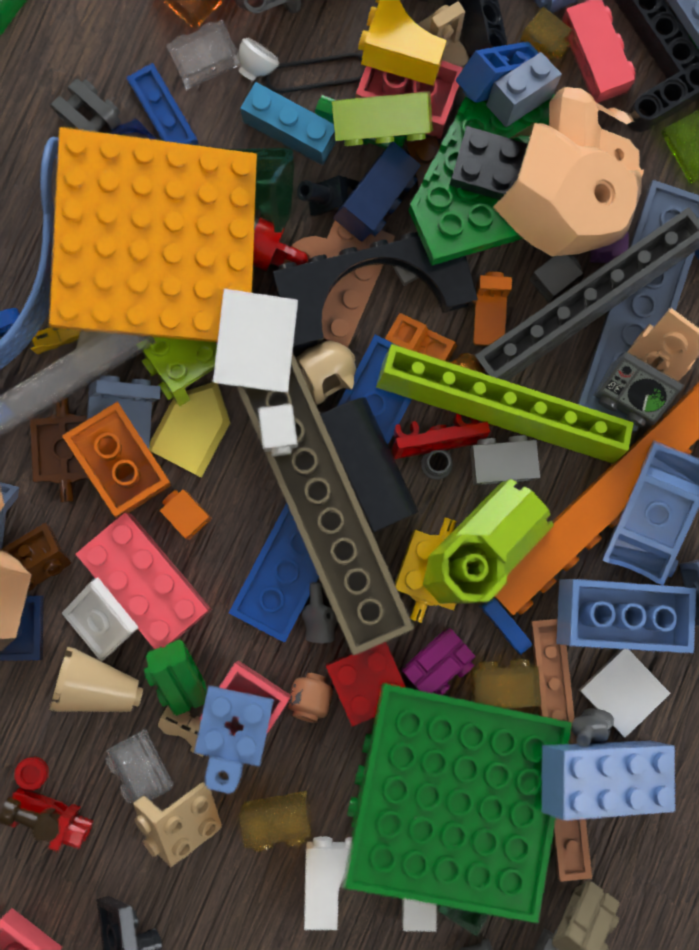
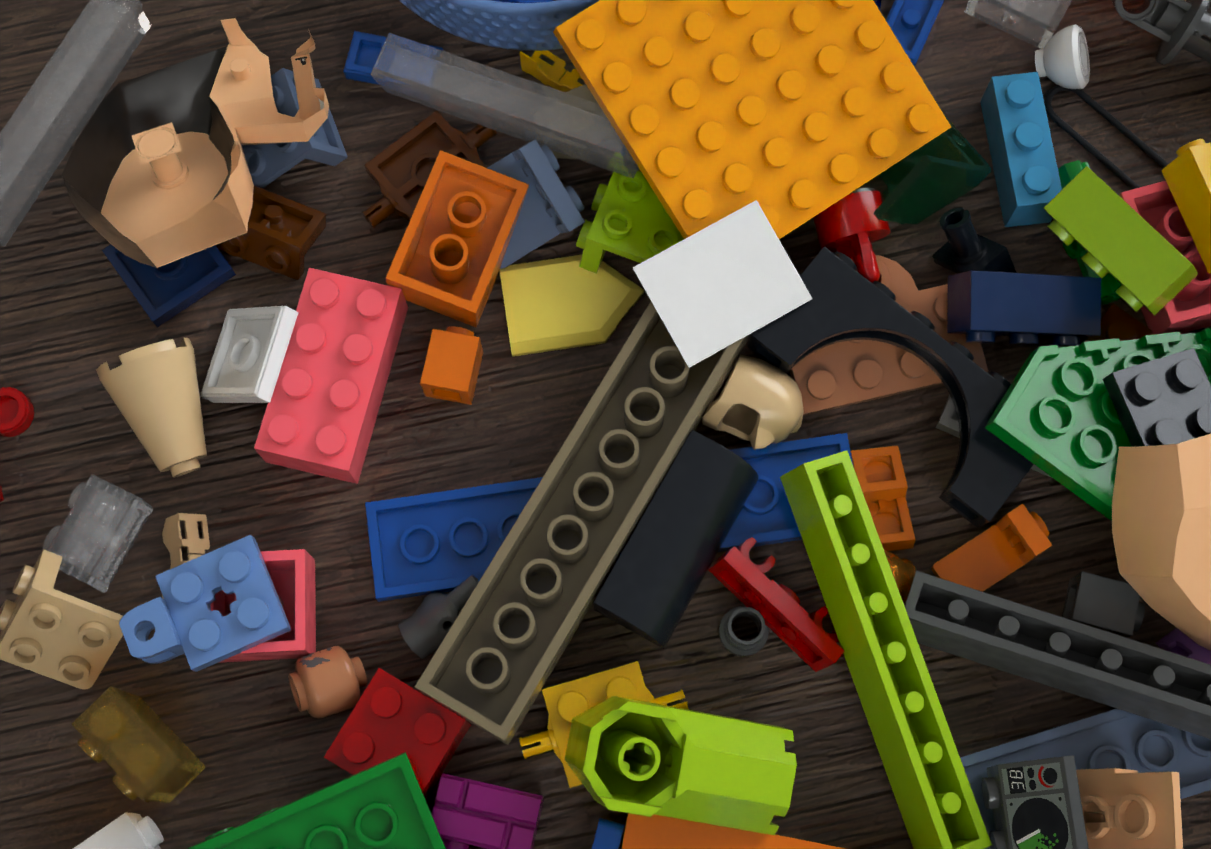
camera: 60 degrees right, 10 degrees down
(176, 677) = (238, 491): green brick -> none
(278, 429) = (633, 385): white brick -> none
(503, 461) = (820, 720): light grey brick -> none

